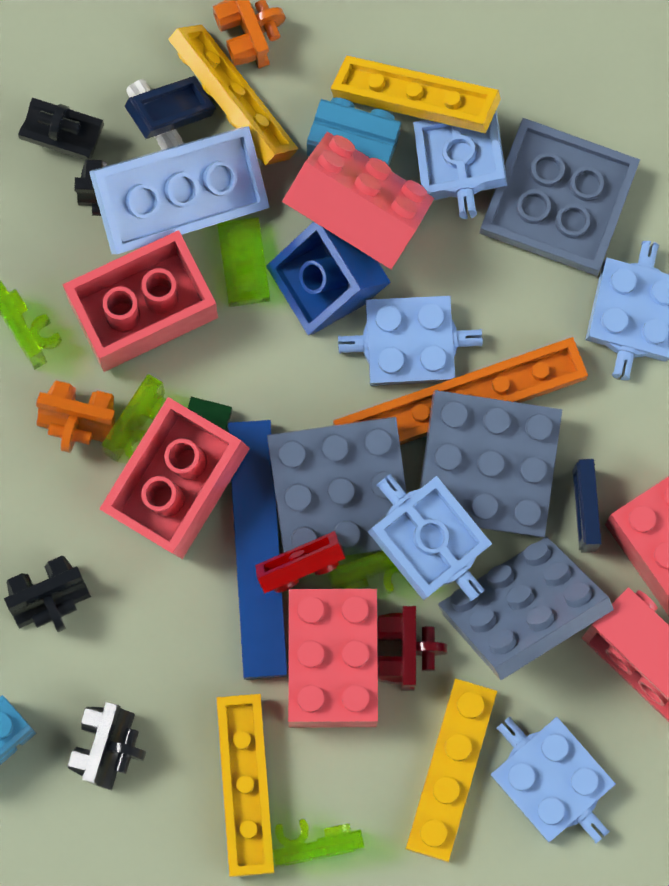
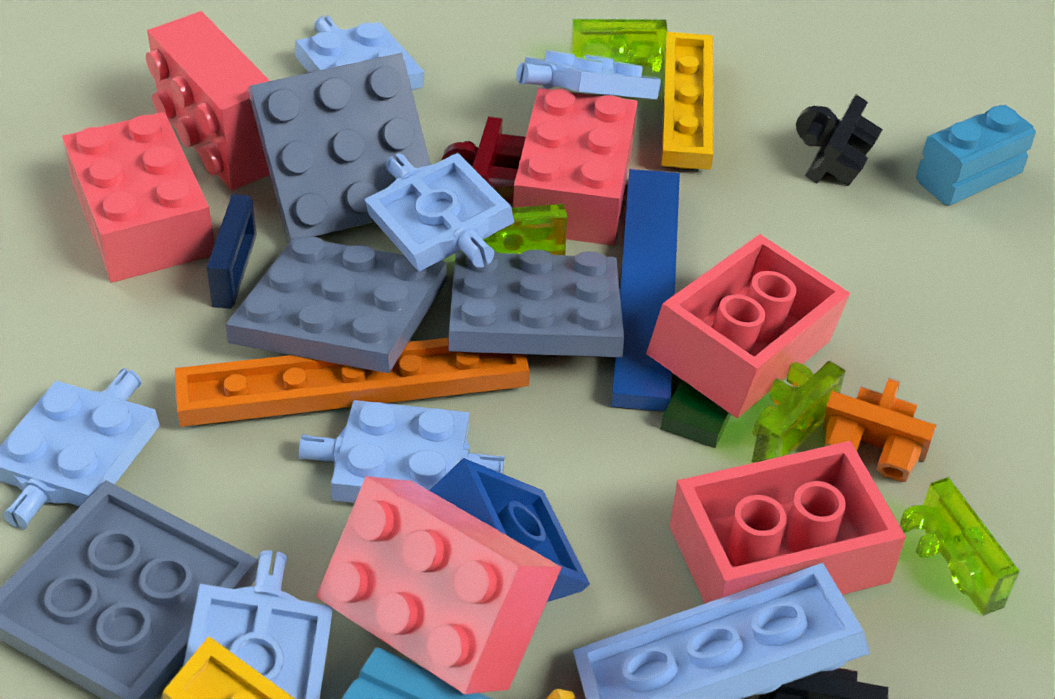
camera: 170 degrees left, 30 degrees down
(48, 599) = (909, 256): black hips -> none
(243, 262) = (621, 581): clear neon green plate -> none
(312, 557) = (601, 225): red plate -> none
(335, 762) = (588, 75): none -> light blue plate
(451, 770) = (467, 85): yellow plate -> none

